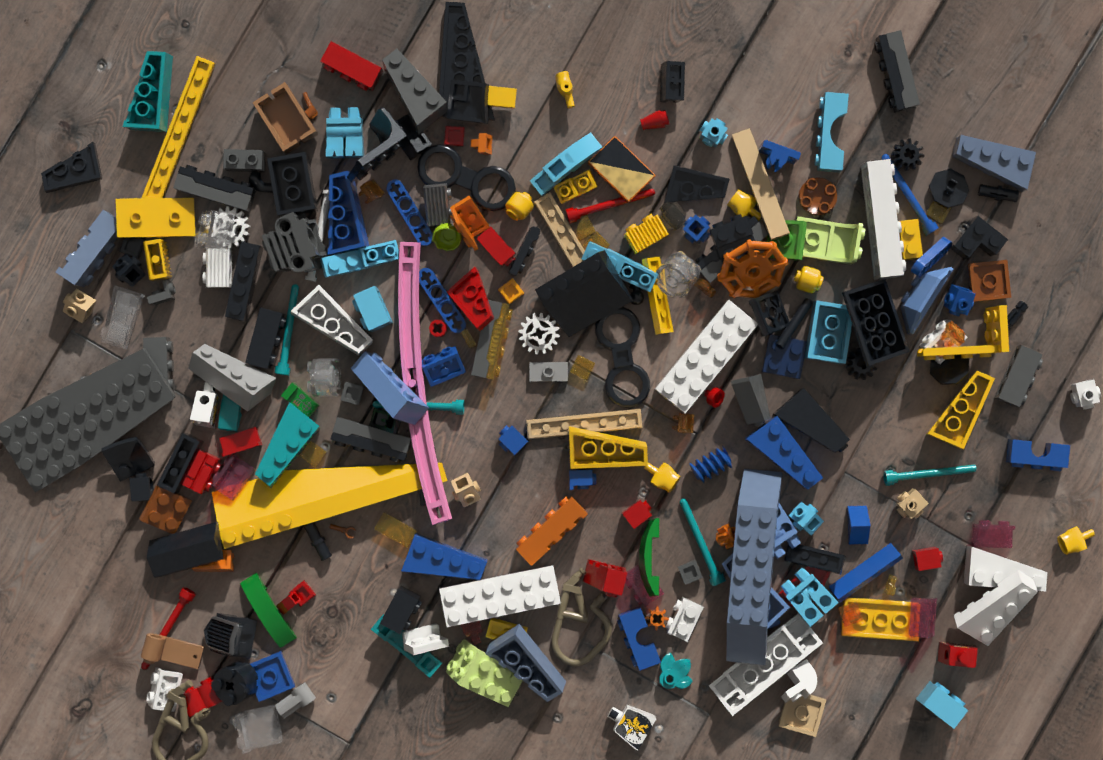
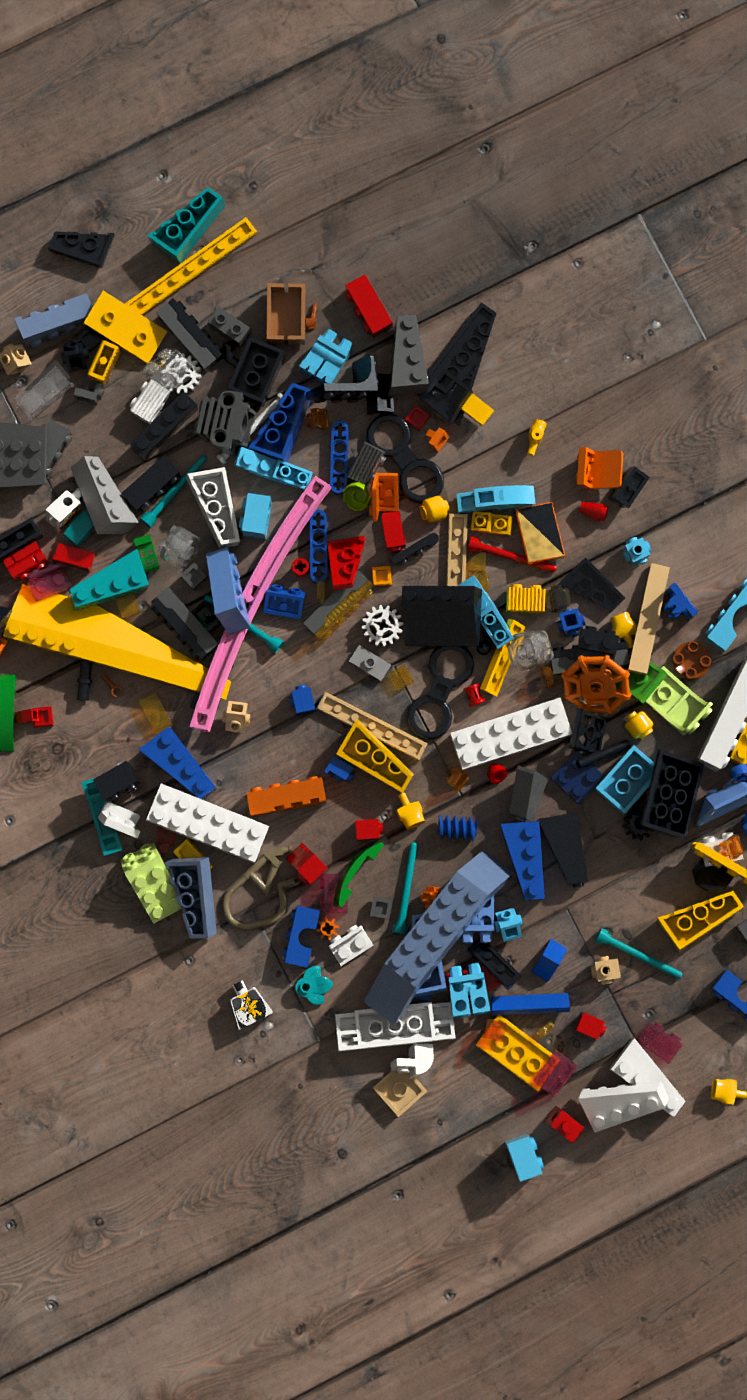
camera: 30 degrees right, 5 degrees down
(637, 81) = (599, 469): none -> orange bracket
(654, 343) = (474, 695): none -> red bush

